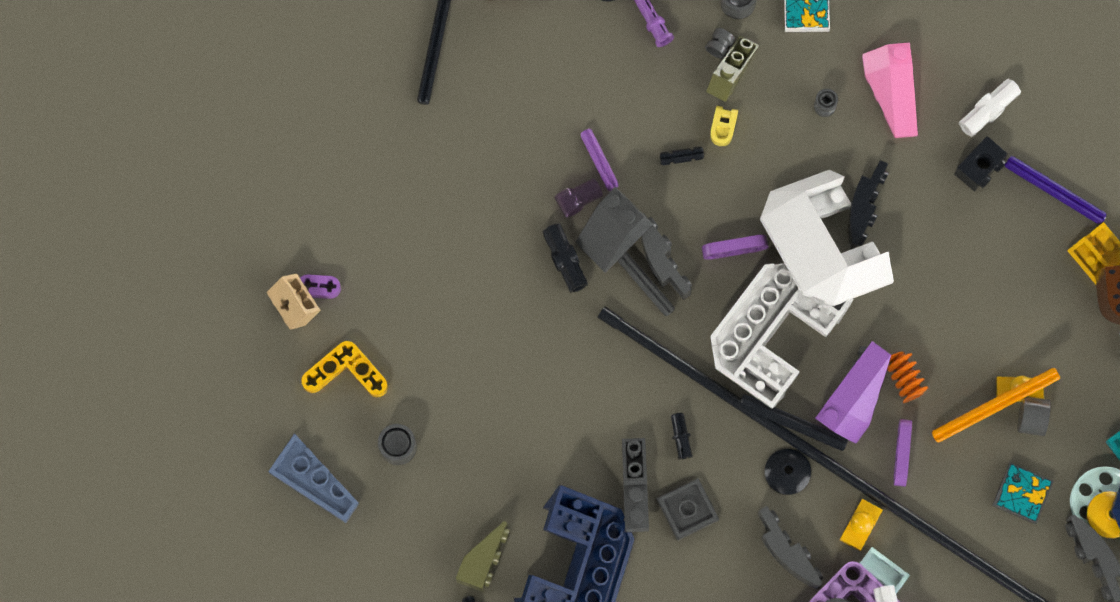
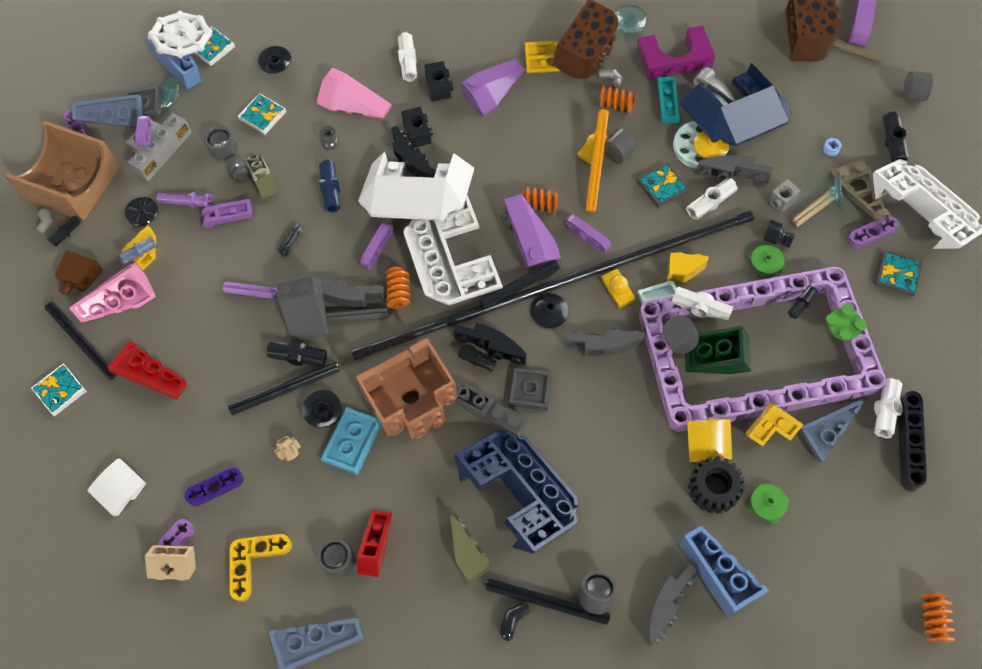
camera: 55 degrees left, 10 degrees down
(325, 196) = (116, 487): none -> white slope
(368, 281) = (202, 498): none -> dark purple beam
(376, 64) = (58, 389): none -> tile
(434, 469) = (374, 544): none -> red slope
(448, 128) = (142, 369): none -> red wing
(465, 322) = (287, 448): none -> tan gear
(508, 37) = (120, 292): none -> bright pink wedge
(516, 375) = (351, 441): none -> medium azure tile
(520, 315) = (315, 403): none -> black dish
(523, 272) = (283, 388): none -> black axle
(558, 22) = (137, 250): none -> sand blue axle
(567, 19) = (149, 256): none -> yellow slope
(573, 200) = (263, 321): clear purple piece -> none
(600, 374) = (407, 375): none -> nougat piece
(666, 69) = (226, 213): none -> medium lavender plate
(701, 304) = (397, 288): none -> orange piece
(710, 446) = (498, 344): none -> black slope
(722, 132) = (296, 206): light yellow plate -> none
(769, 148) = (329, 186): none -> dark blue piece
(910, 172) = (416, 126): none -> black brick
(932, 578) = (685, 266): none -> yellow slope
(1016, 225) = (489, 86): none -> medium lavender wedge
(1055, 190) = (485, 55): dark purple axle -> none
(1055, 560) = (717, 193): none -> white piece
(1096, 375) = (617, 99): none -> orange piece

